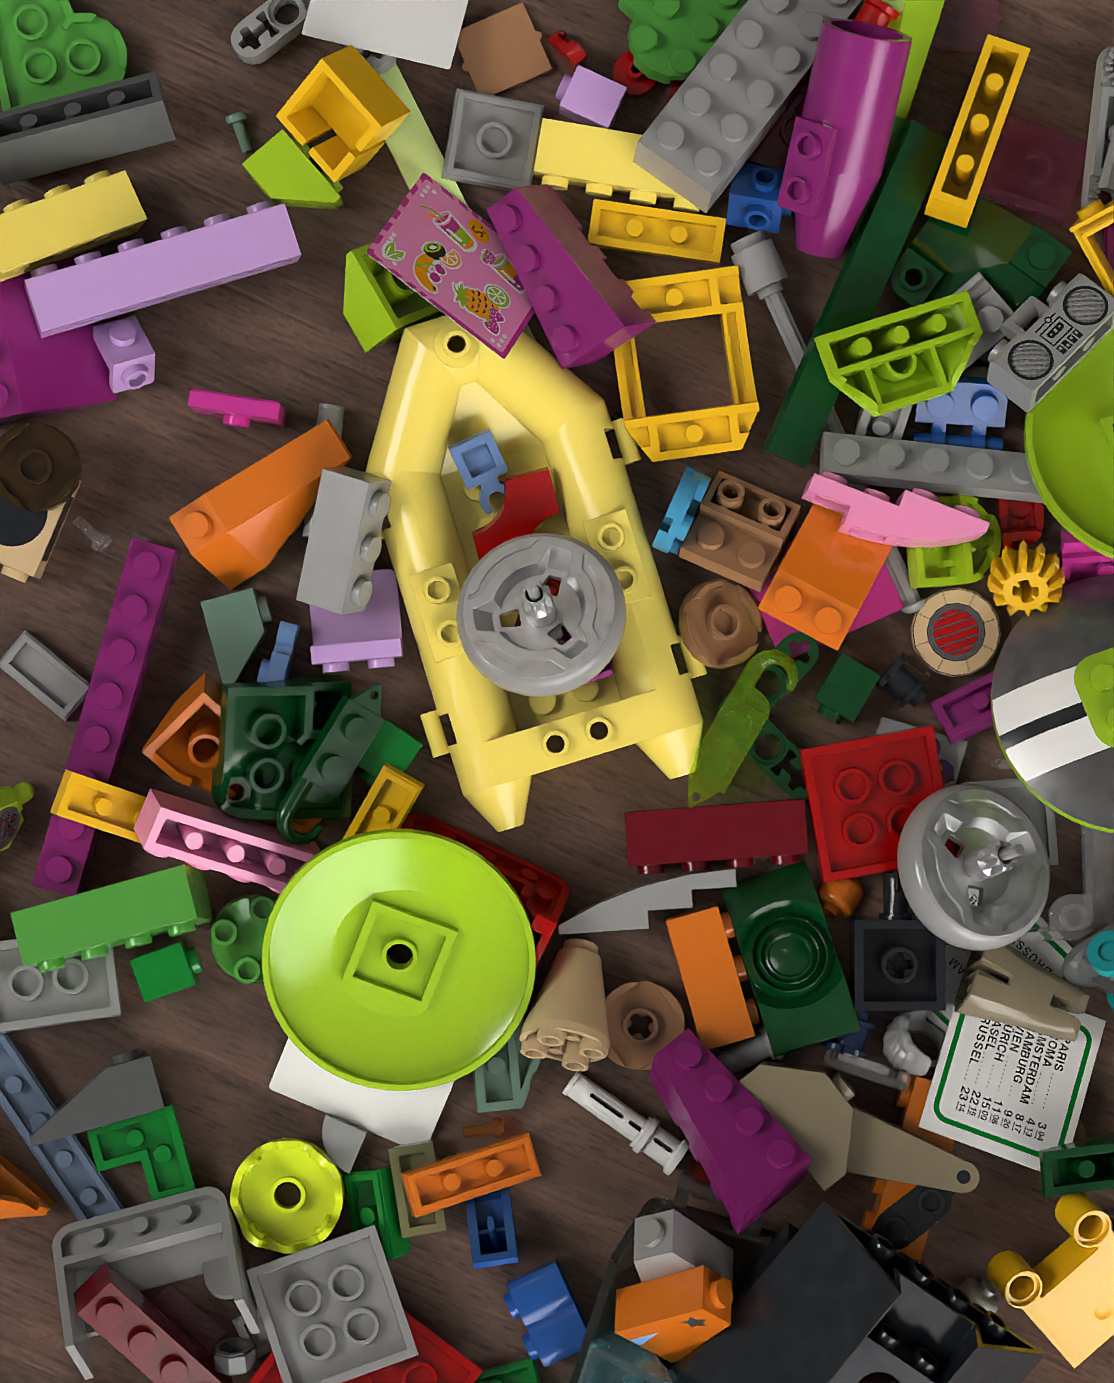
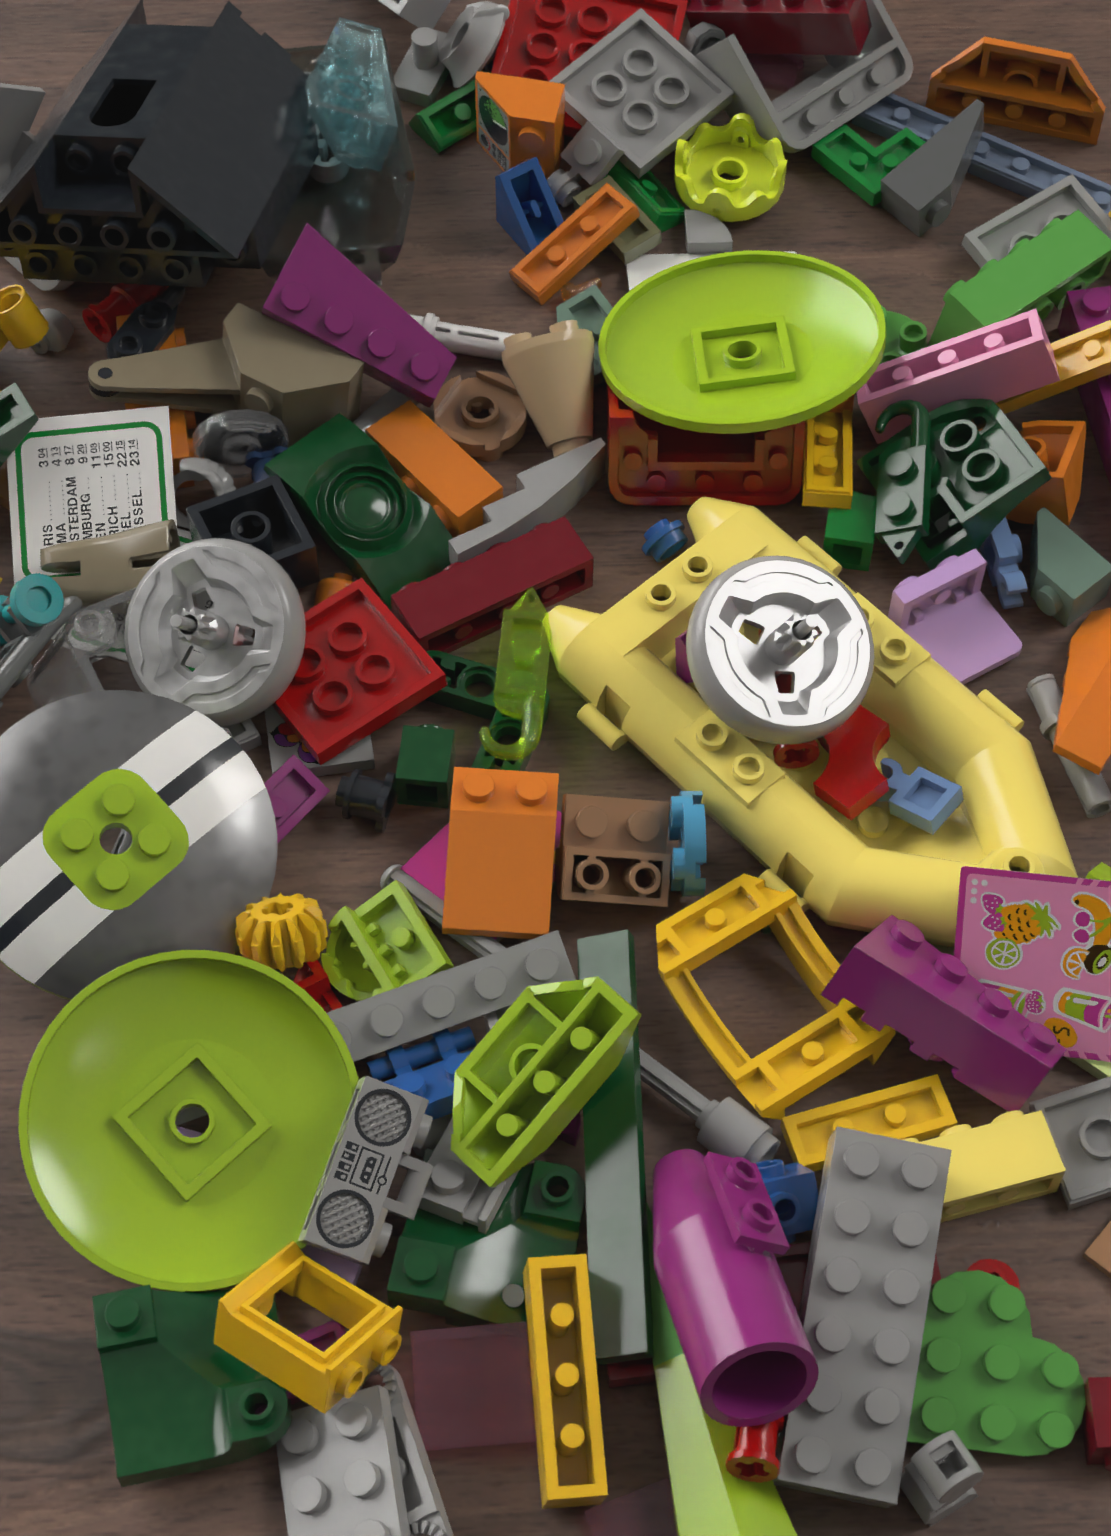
camera: 155 degrees right, 30 degrees down
(167, 970) = (935, 279): green brick -> none
(344, 540) = (1015, 664): light grey brick -> none
(413, 1262) = (590, 156): none -> light grey plate
(457, 1322) = (520, 120): none -> orange slope
(548, 818) = (664, 539): none -> blue plate
(548, 1312) = (448, 178): blue brick -> none
(569, 51) = (1080, 1275): red tile -> none
(590, 98) = (1023, 1228): lavender brick -> none
(673, 1243) = (351, 204): light grey slope -> none
(674, 1311) = (335, 165): orange slope -> none
(720, 623) = (591, 759): medium nougat tile -> none
(911, 522) = (432, 921): bright pink slope -> none
(955, 632) = (334, 866): tile -> none
(978, 218) = (513, 1295): none -> light grey piece

